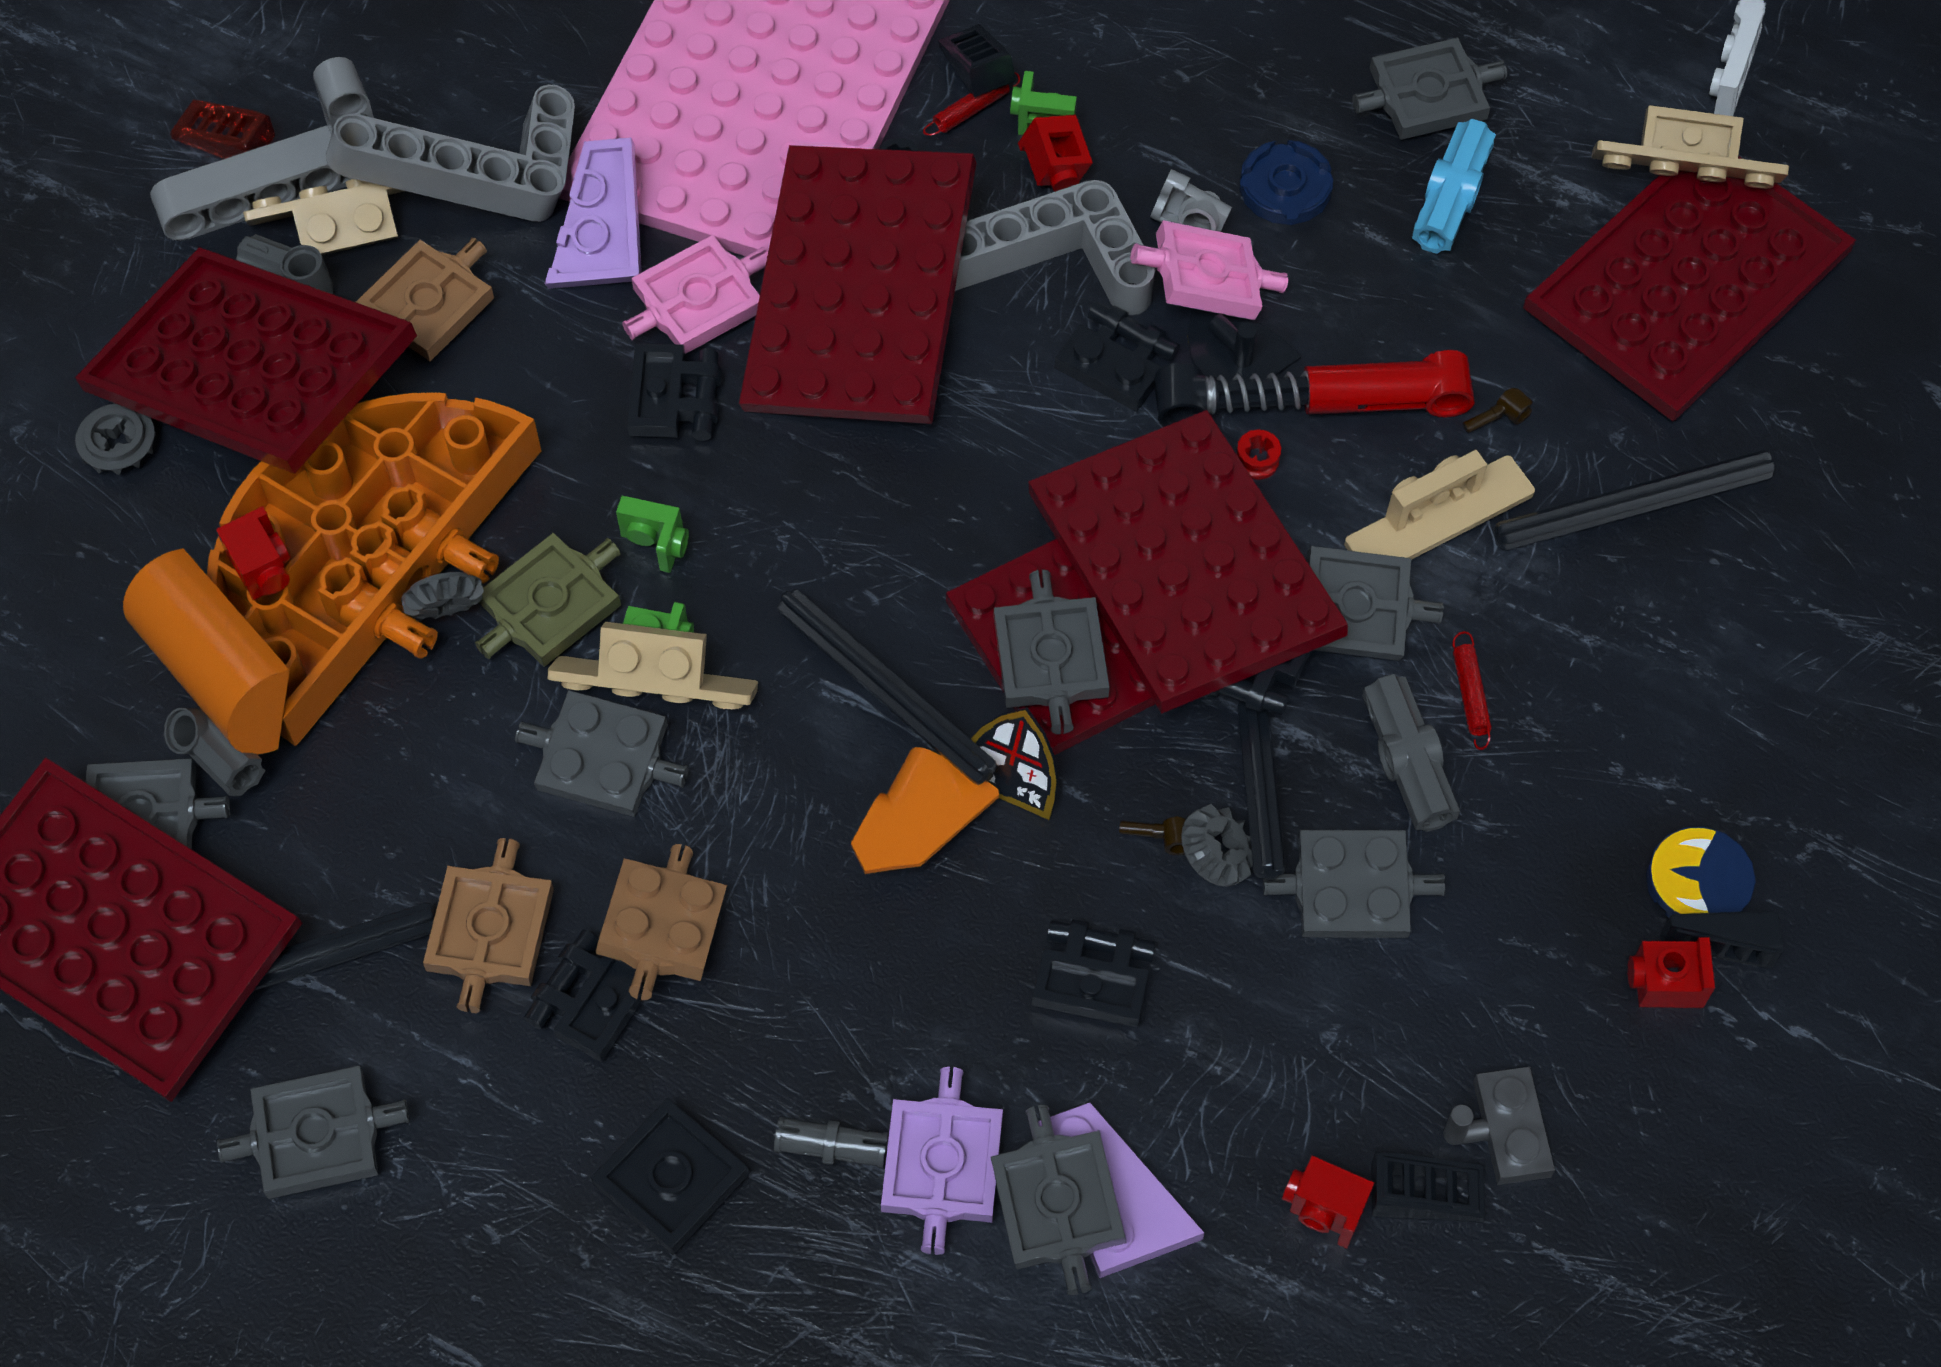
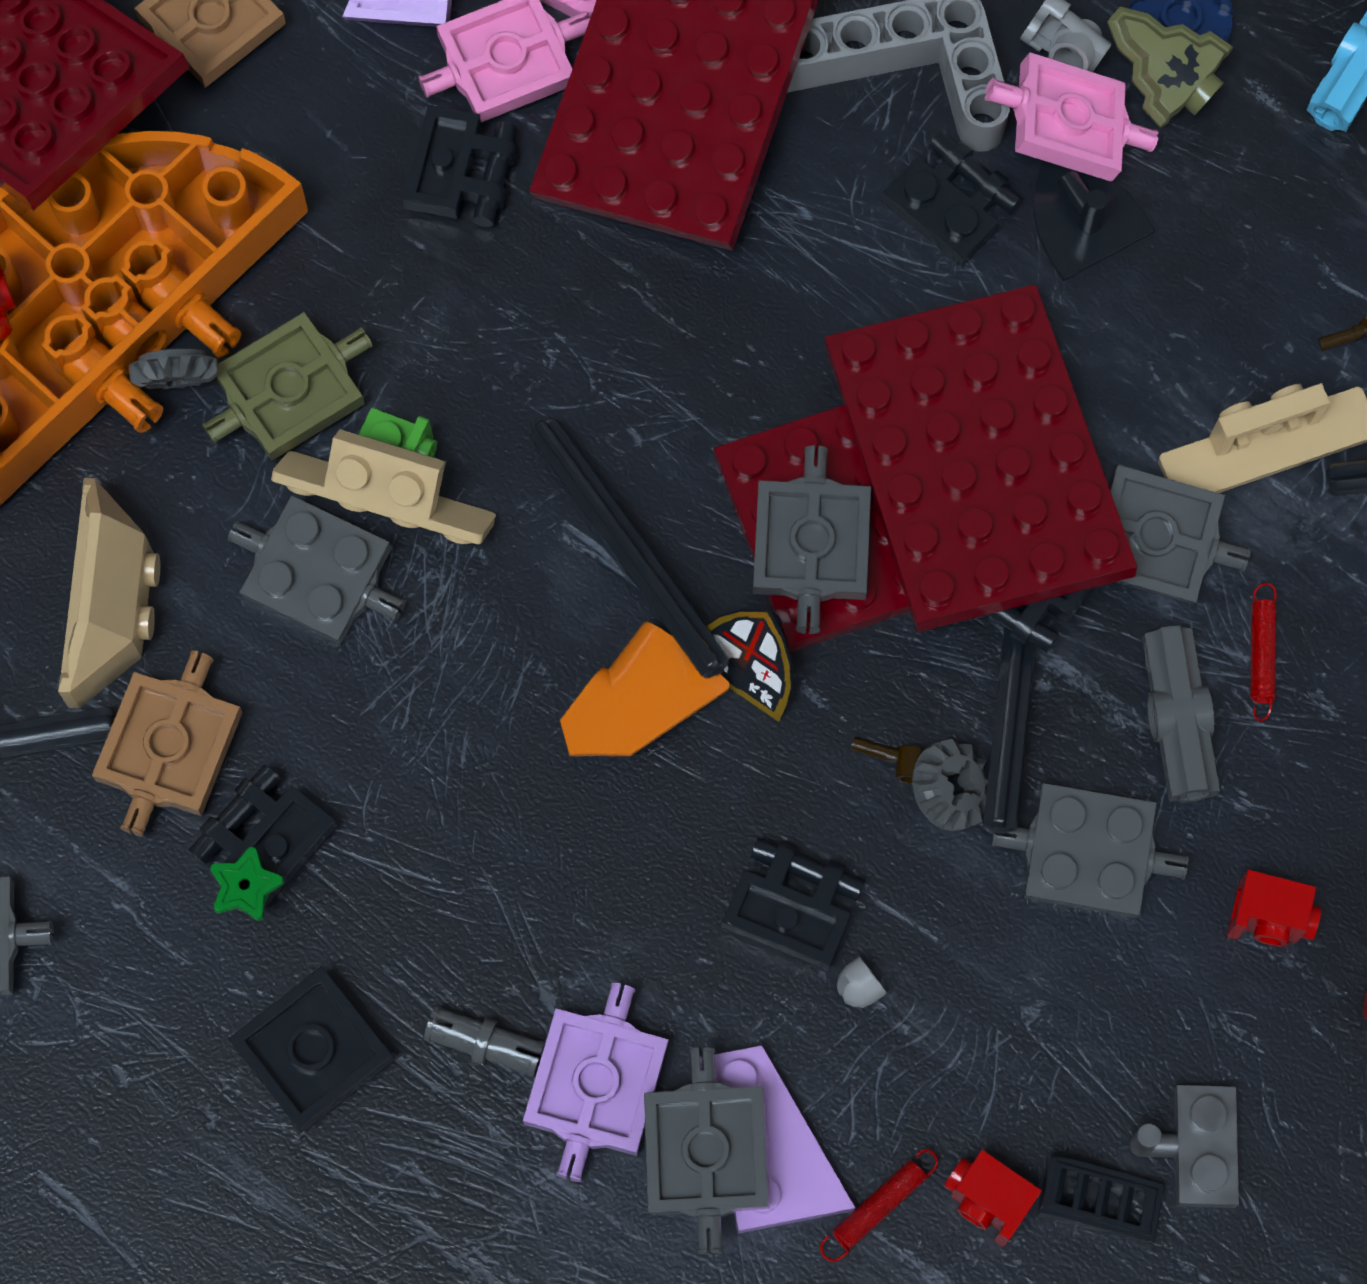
camera: 10 degrees right, 10 degrees up
(411, 805) = (107, 597): none -> tan wedge
(586, 1048) = (249, 900): none -> green plate
(651, 524) = (411, 317): bright green bracket -> none
(661, 920) = (346, 771): medium nougat plate -> none
(1169, 1033) = (859, 984): none -> light grey hinge
(1225, 1228) = (879, 1205): none -> red piece
(1265, 442) = (1094, 326): red bush -> none
(1284, 214) = (1169, 63): none -> olive rock
(1436, 384) = (1294, 290): piece -> none
(1530, 905) = (1274, 910): none -> red brick

